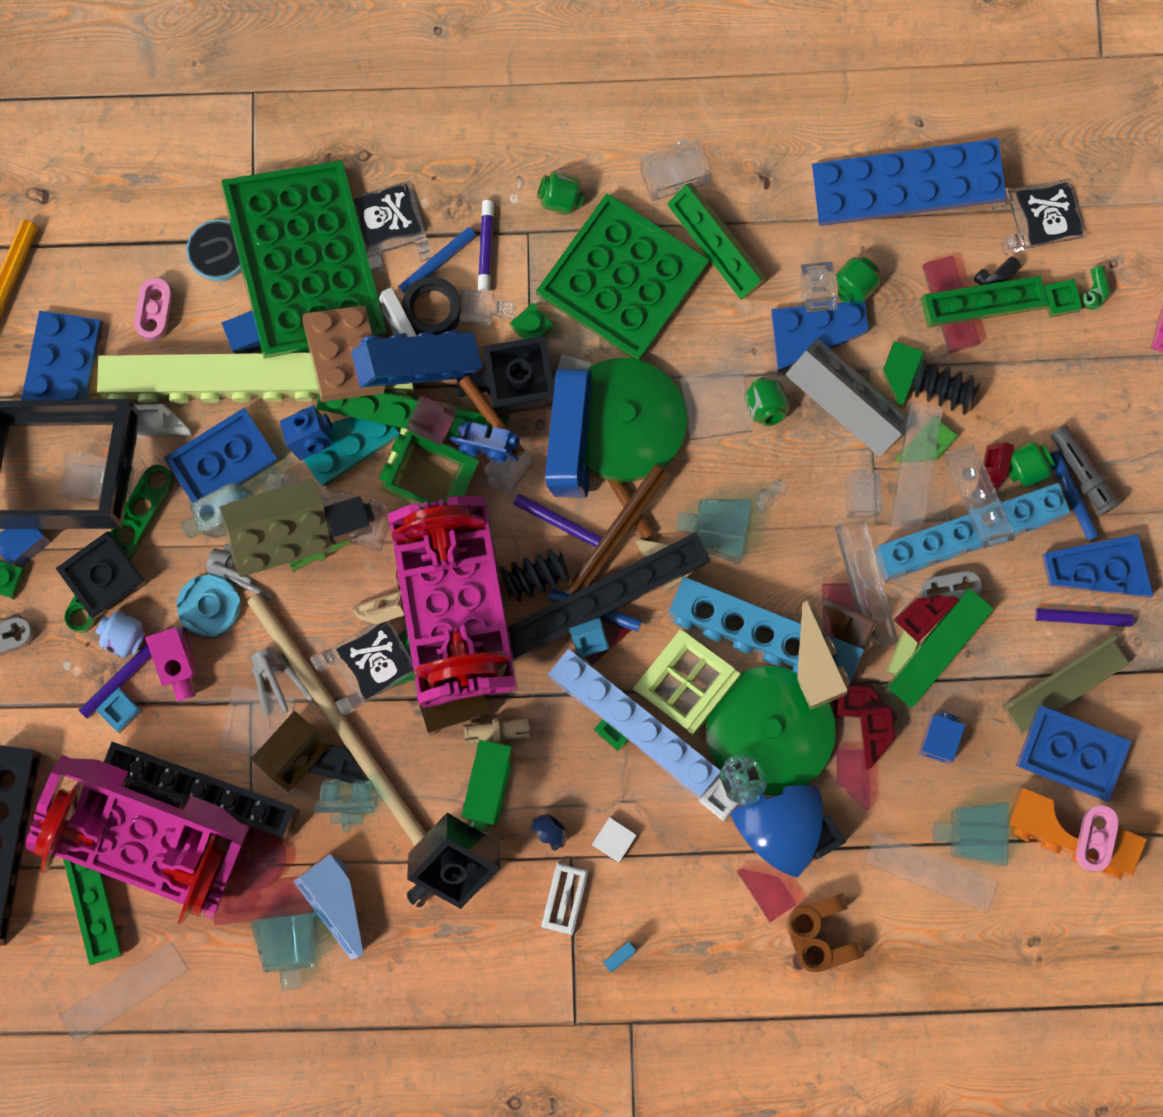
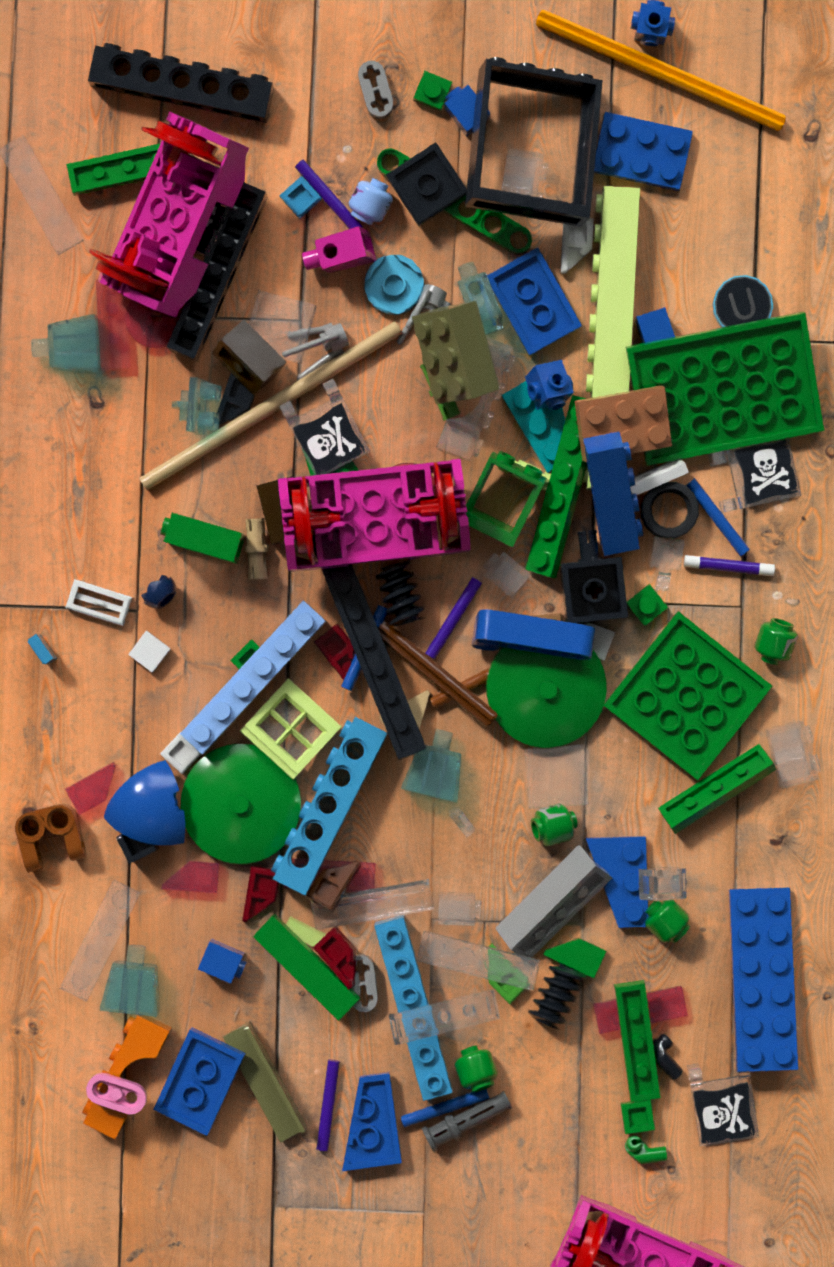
camera: 90 degrees right, 10 degrees up
(153, 311) = (686, 239): bright pink plate -> none
(332, 899) = (111, 389): light blue slope -> none
(349, 519) = (460, 422): black brick -> none
(380, 609) = (376, 447): tan tile -> none
(431, 420) = (551, 504): clear pink panel -> none
(451, 862) = (133, 501): black brick -> none
(486, 409) = (552, 561): dark orange bar -> none
(498, 447) = (522, 567): blue hinge -> none
(589, 638) = (335, 640): dark azure tile -> none
(743, 779) = (192, 774): clear light blue head -> none
(817, 671) = (286, 849): tan slope -> none
(876, 732) = (230, 901): dark red tile -> none
(997, 462) = (478, 1038): dark red tile -> none

